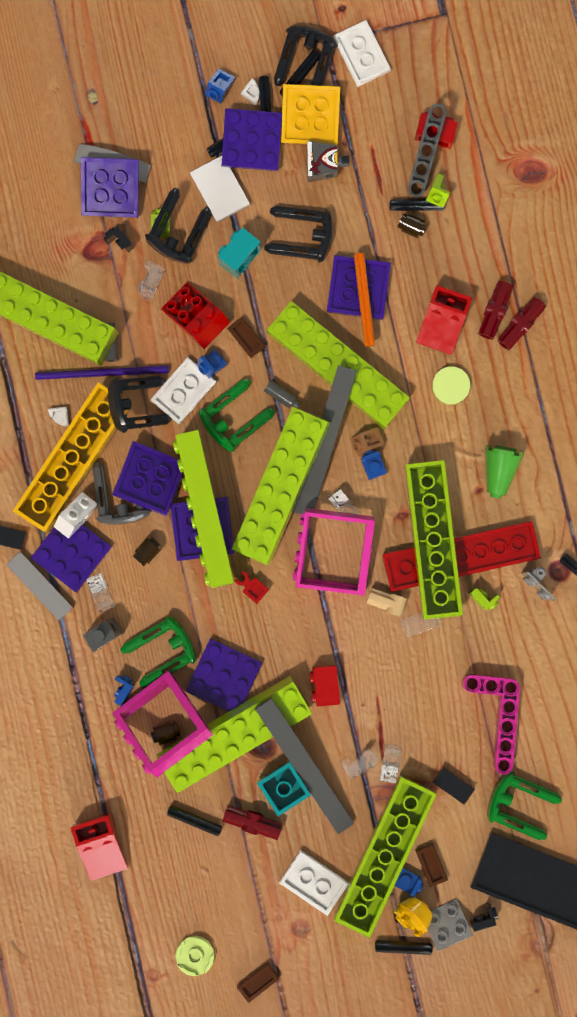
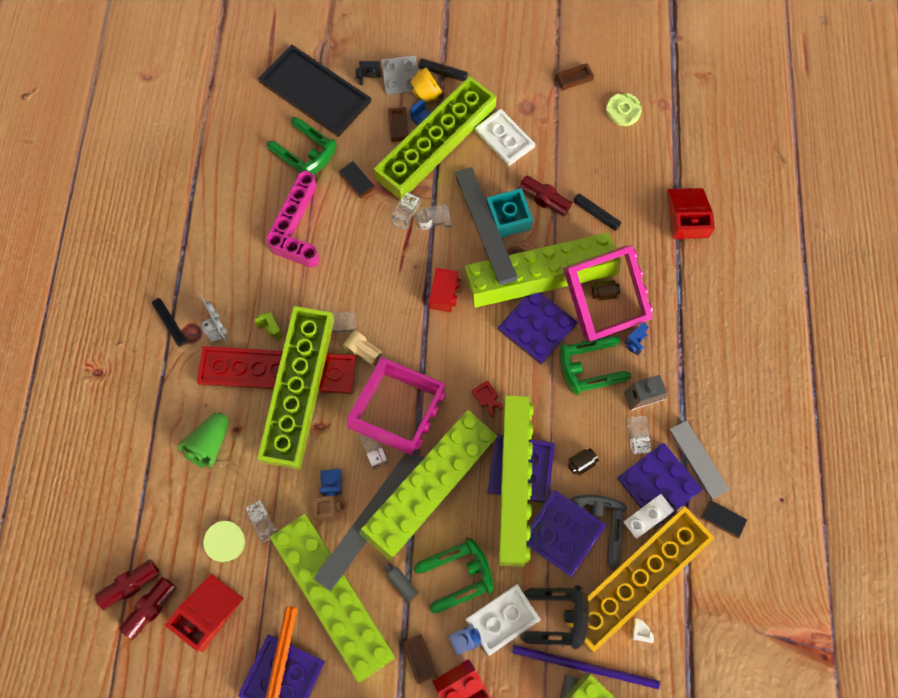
camera: 165 degrees left, 15 degrees down
(424, 412) = (261, 521): none -> clear leg

